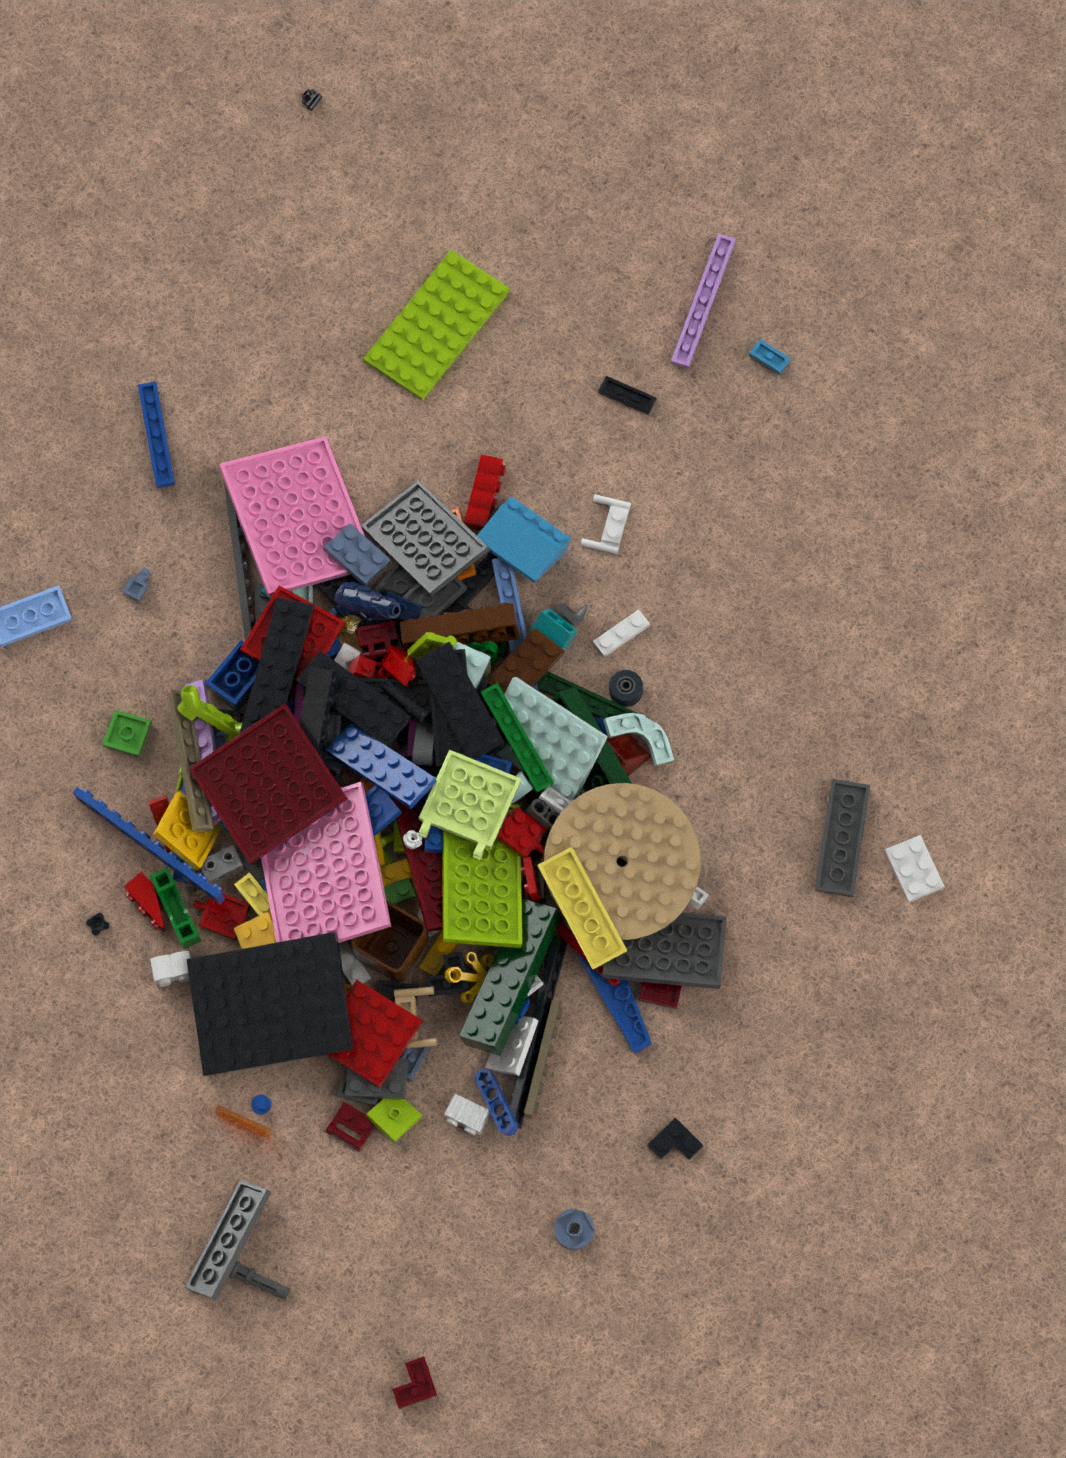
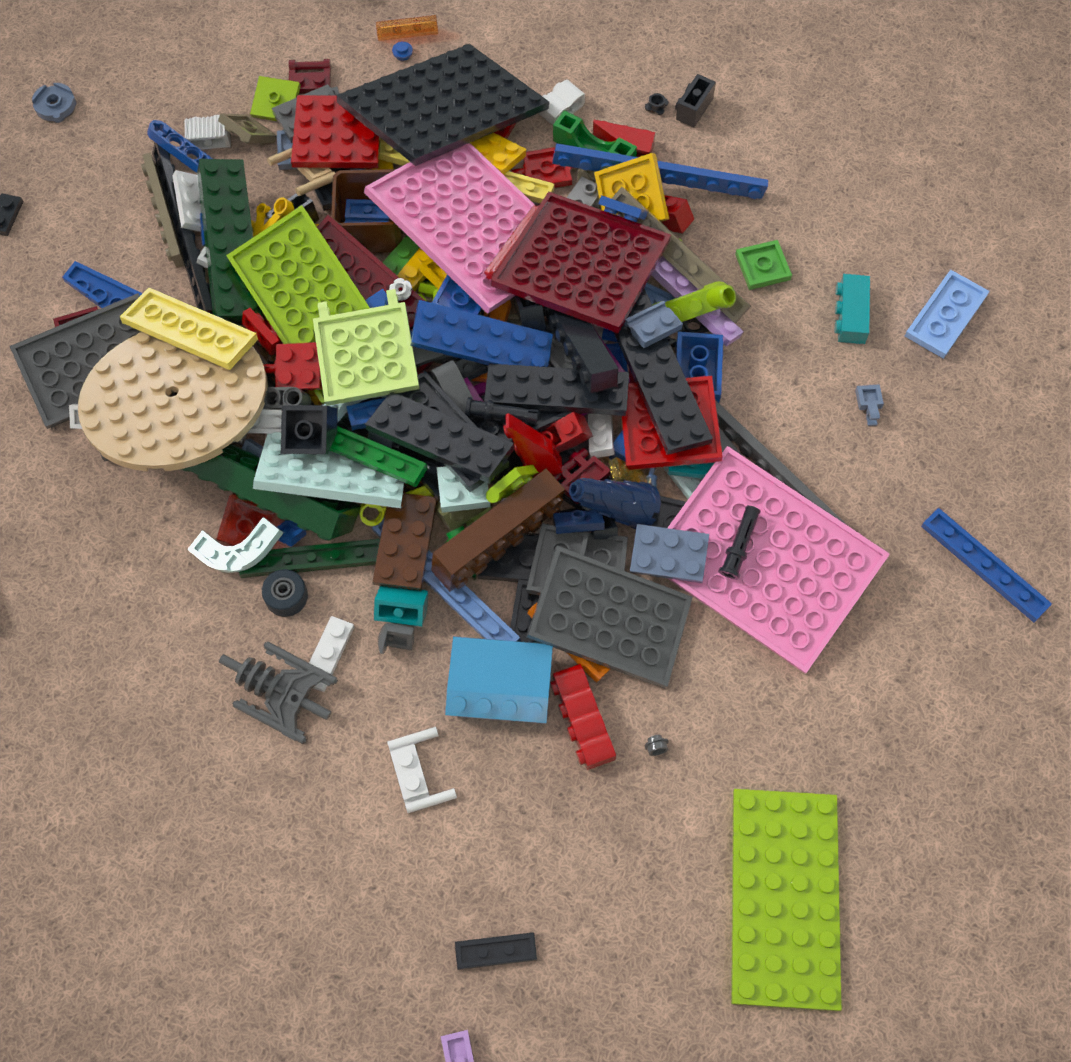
camera: 145 degrees right, 5 degrees down
(70, 899) = (695, 100): none -> black brick
(92, 658) = (853, 308): none -> teal brick
(207, 809) = (631, 212): none -> blue plate
(254, 703) = (653, 324): none -> sand blue plate
(306, 831) = (503, 252): none -> axle
(315, 524) = (736, 553): none -> black pin
(391, 946) = (363, 211): none -> blue plate
(434, 1092) = (247, 128): none -> dark tan plate
(450, 450) = (656, 745): none -> dark grey plate
(544, 765) = (308, 429): none -> black slope
(665, 619) = (284, 692): none -> dark grey bar

